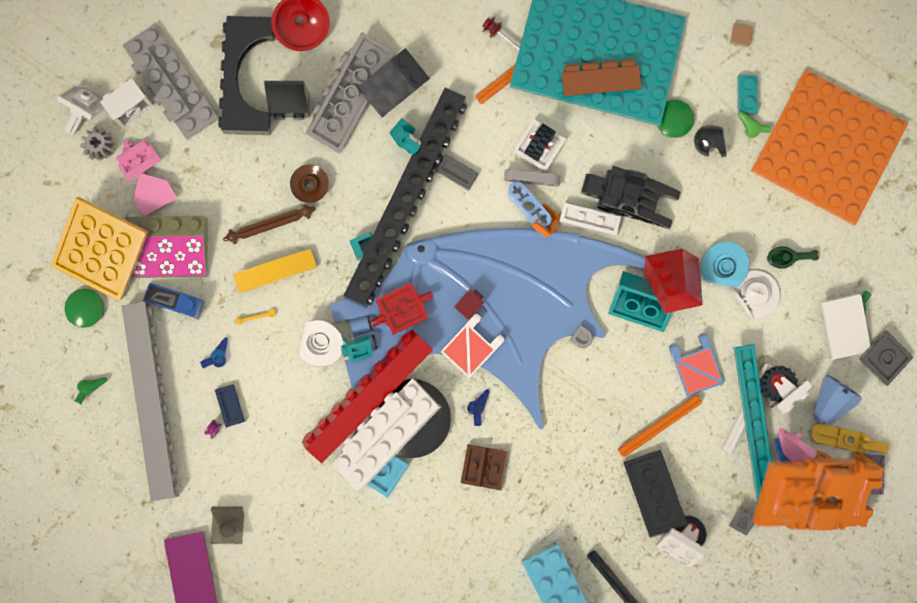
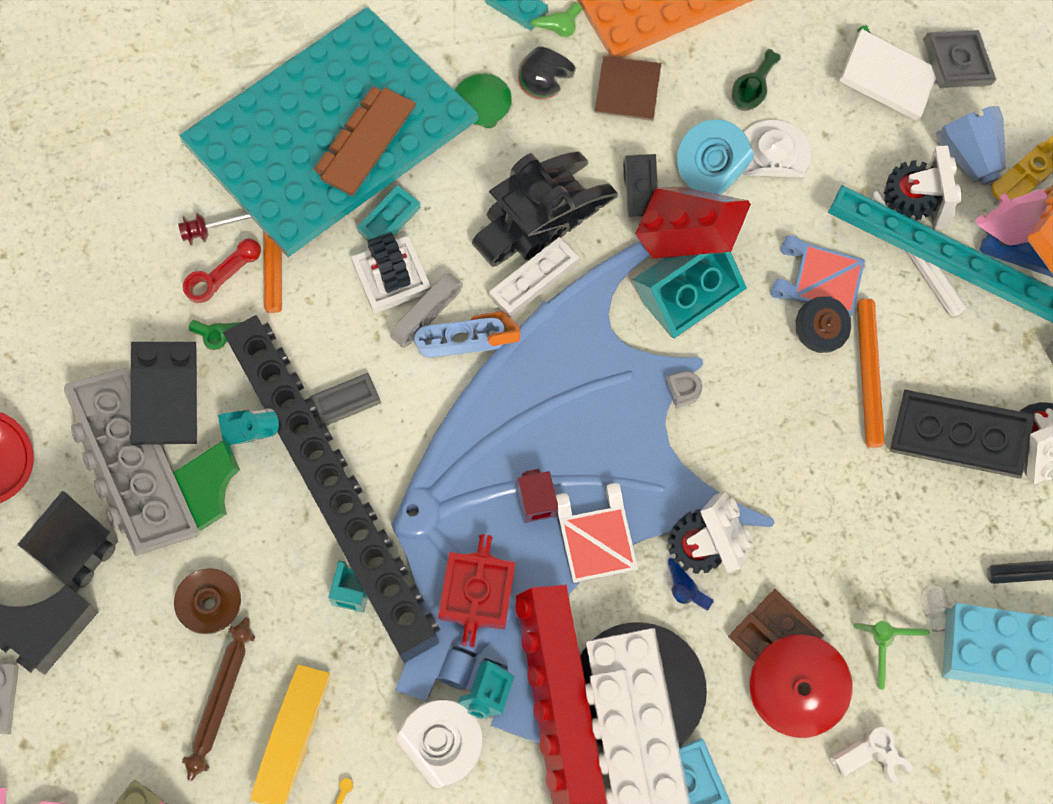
camera: 55 degrees left, 15 degrees down
(365, 137) = (205, 483): none -> green tile
(445, 81) = (212, 334): none -> green animal
(465, 549) = (876, 742): none -> white bar
(476, 487) = (781, 670): none -> red dish
(499, 63) = (247, 251): none -> red piece
(510, 404) = (711, 537): none -> white plate
(516, 519) = (884, 636): none -> bright green plant
(570, 120) = (389, 214): none -> teal plate
(667, 385) = (823, 324): none -> black wheel
(682, 237) = (640, 182): none -> black plate
(737, 191) = (628, 88): none -> reddish brown slope

